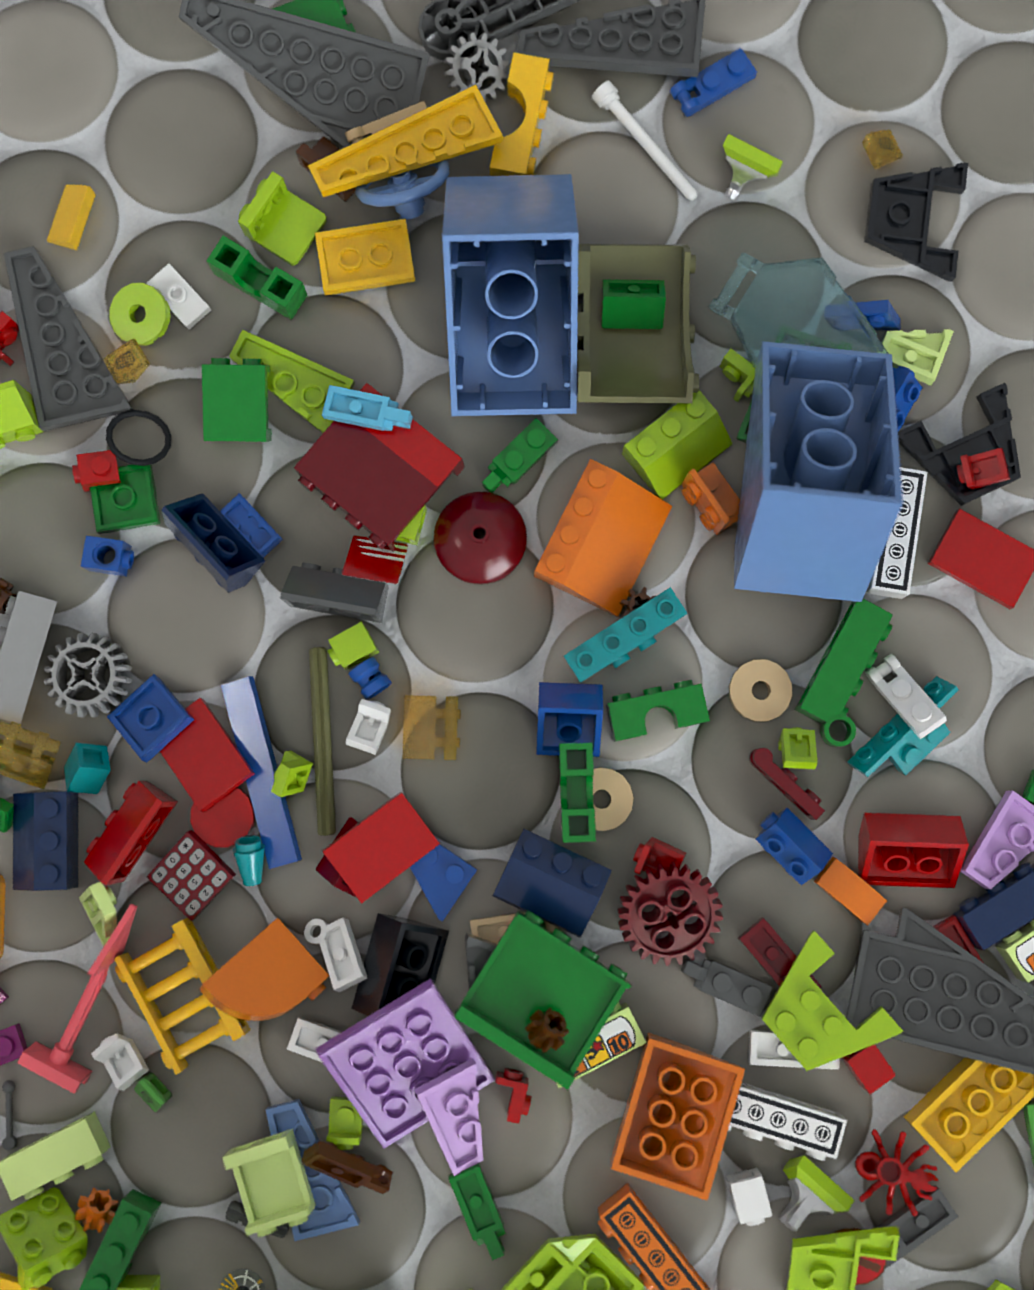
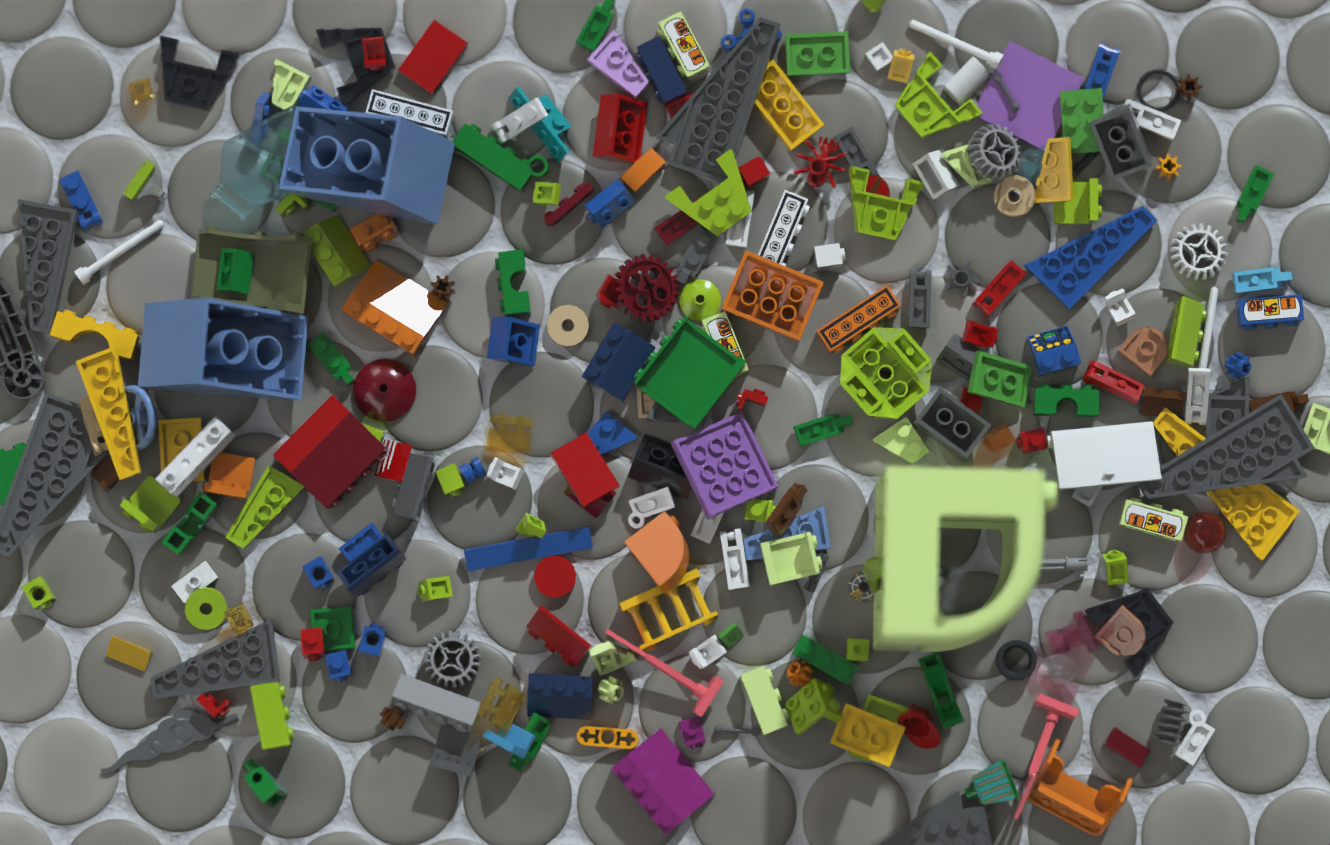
camera: 85 degrees left, 0 degrees up
(54, 917) = (611, 690): none -> yellowish green gear
(68, 511) = (338, 666): none -> blue bracket
(87, 768) = (514, 663): teal panel -> none
(141, 462) = (310, 616): black piece -> none
(145, 70) = (30, 590): none -> lime brick
(150, 718) = (485, 619): blue tile -> none
(190, 640) = (435, 588): none -> lime bracket
(191, 875) = (592, 599): tile -> none
(200, 455) = (310, 569): none -> blue brick
(206, 758) = (513, 586): red tile -> none
(235, 401) = (276, 543): green panel -> none
(249, 859) = (585, 559): teal cone -> none
(266, 1089) = (734, 560): none -> white plate
(322, 741) = (511, 506): olive axle -> none
(332, 328) = (231, 476): none -> orange bracket
(348, 267) = (195, 457): none -> white fence
(364, 409) = (292, 456): medium azure hinge -> none
(453, 1115) = (760, 439): lavender wing -> none
(479, 54) = (47, 365): light grey gear -> none
(547, 1030) = (708, 371): reddish brown gear -> none
(577, 792) = (557, 340): green arch -> none
(625, 635) = (461, 298): teal bracket -> none
(658, 980) = (695, 310): none -> lime dish
(775, 679) = (502, 202): tan tile -> none
(811, 1193) = (829, 216): piece -> none

